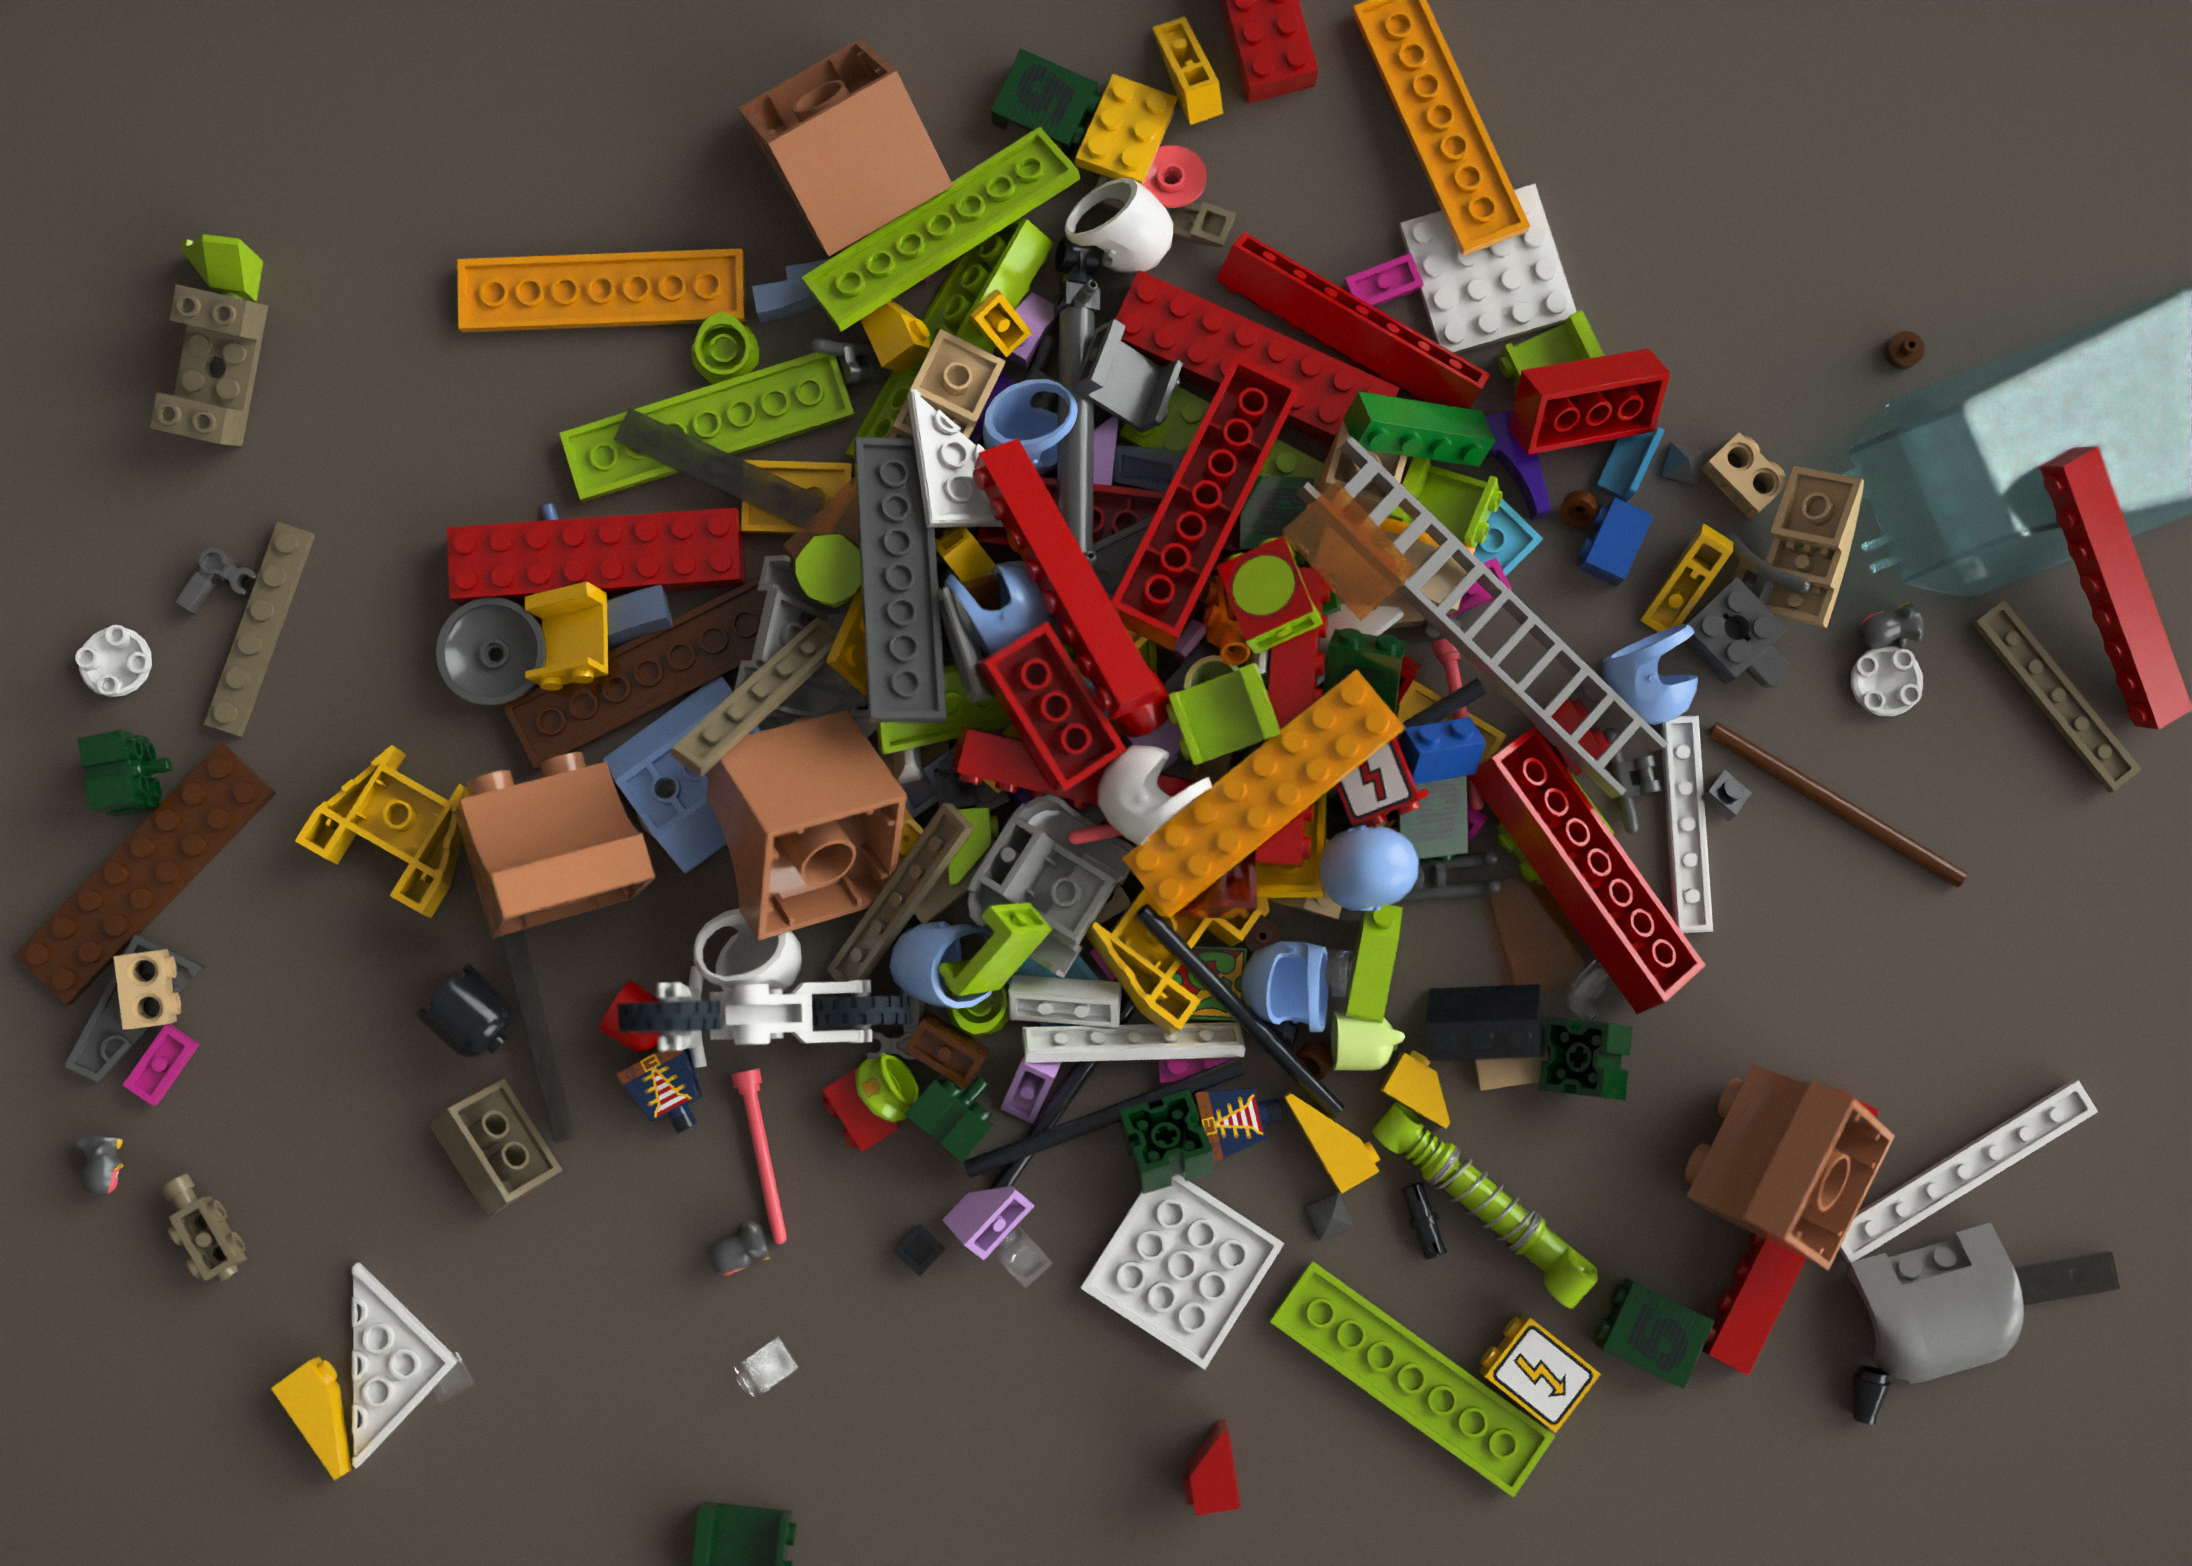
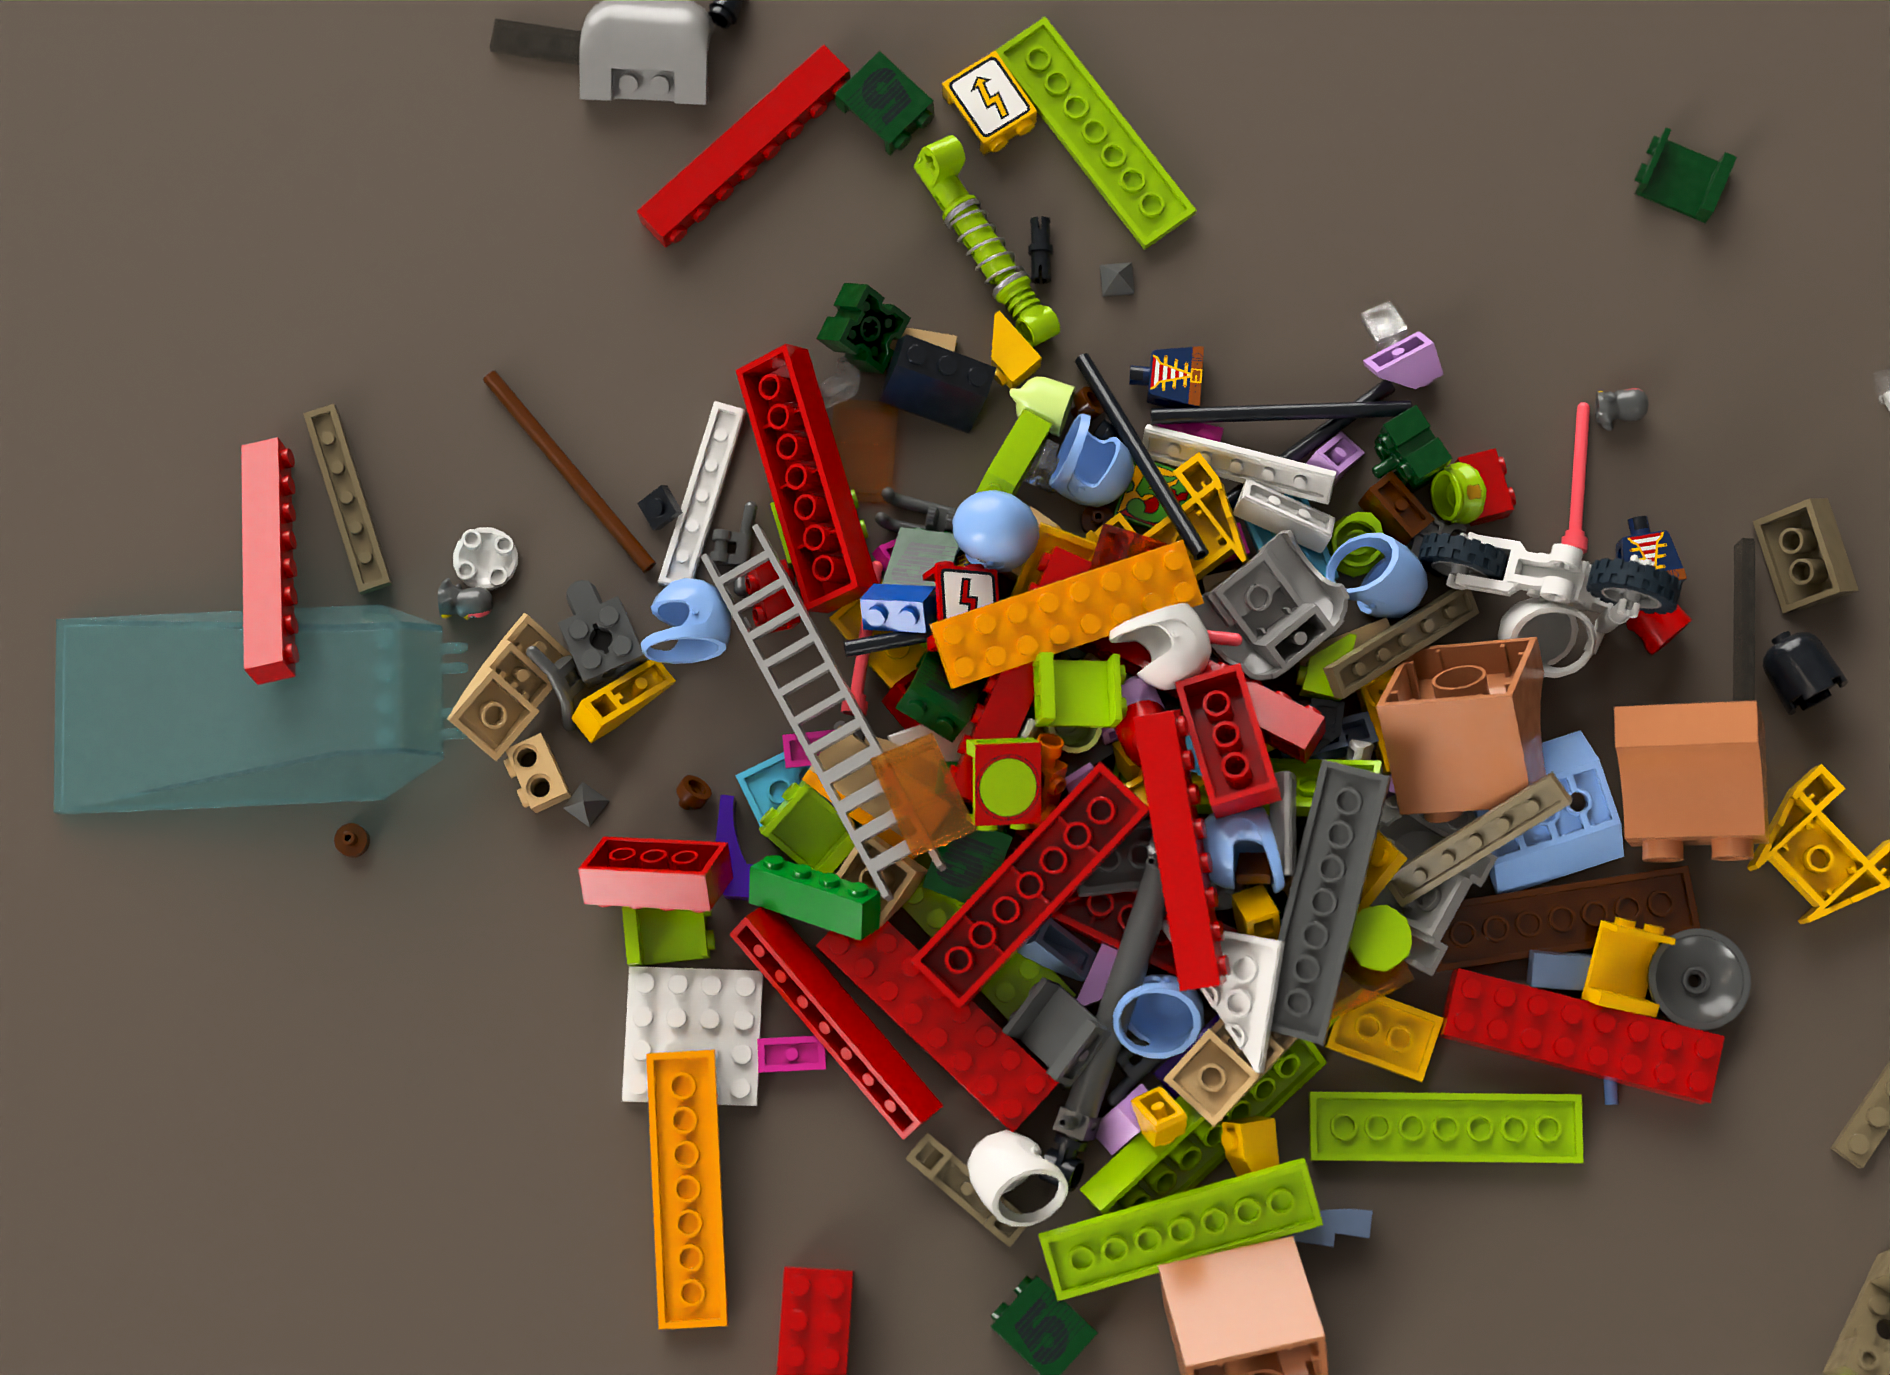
camera: 155 degrees left, 5 degrees down
(599, 290) = (1508, 1287): light orange plate -> none
(718, 469) = (1448, 1078): clear smoke tile -> none
(724, 348) = (1409, 1193): lime hat -> none
(765, 1368) = (1625, 306): clear bracket -> none
(847, 351) = (1301, 1131): dark grey piece -> none
(919, 1249) = (1468, 359): black plate -> none
(1016, 936) = (1318, 571): lime panel -> none
(1126, 130) = (977, 1275): yellow plate -> none
(1166, 1141) = (1237, 372): dark green brick -> none
(1182, 1267) = (1253, 278): white plate -> none
(1183, 168) = (946, 1233): coral dish -> none
(1189, 71) = (900, 1317): yellow slope -> none
(1211, 1474) = (1286, 103): red slope -> none
(1338, 1150) = (1094, 331): yellow slope -> none
(1615, 541) = (673, 753): blue brick -> none
(1628, 464) = (635, 816): dark azure panel -> none
(1789, 1162) = (735, 185): nougat brick -> none
(1966, 1169) = (584, 147): white plate -> none

